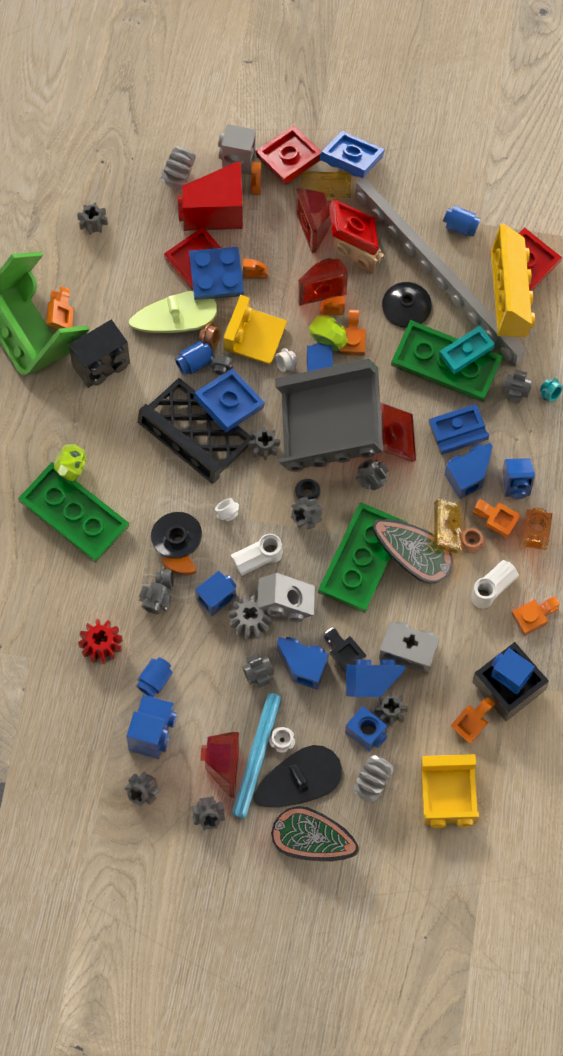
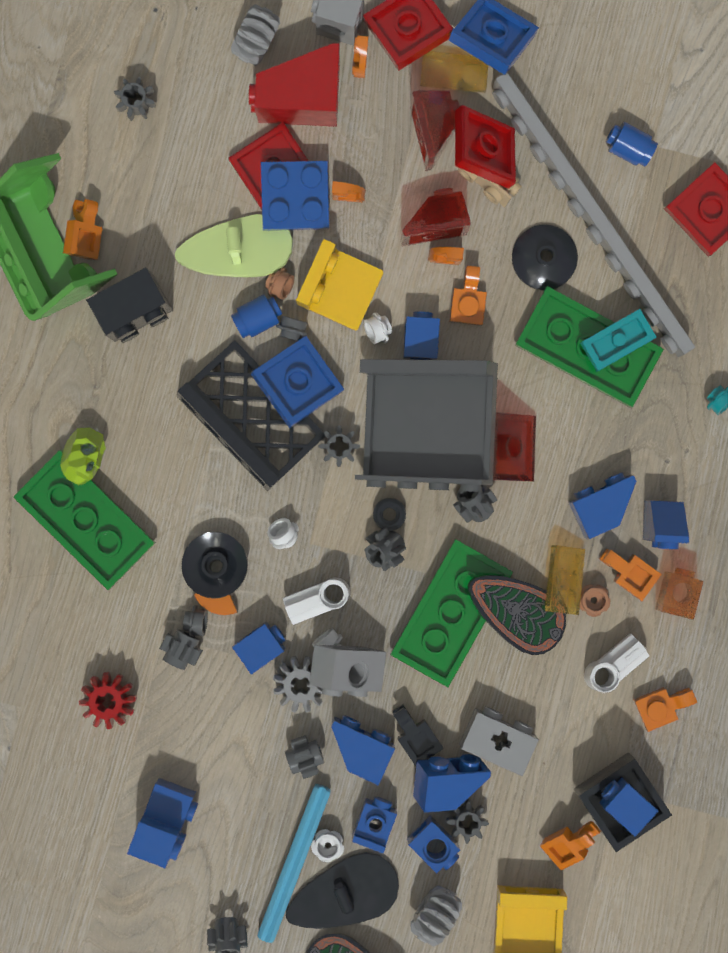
camera: 10 degrees right, 20 degrees up
(142, 789) = (147, 900): dark grey gear -> none
(154, 676) = (173, 753): blue brick -> none
(221, 760) = (248, 875): clear red slope -> none
(318, 726) = (365, 835): none -> blue brick
(328, 331) = (438, 296): lime rock -> none
(458, 429) = (594, 445): blue plate -> none
(511, 283) = (689, 254): yellow slope -> none
(517, 386) = (678, 393): dark grey gear -> none

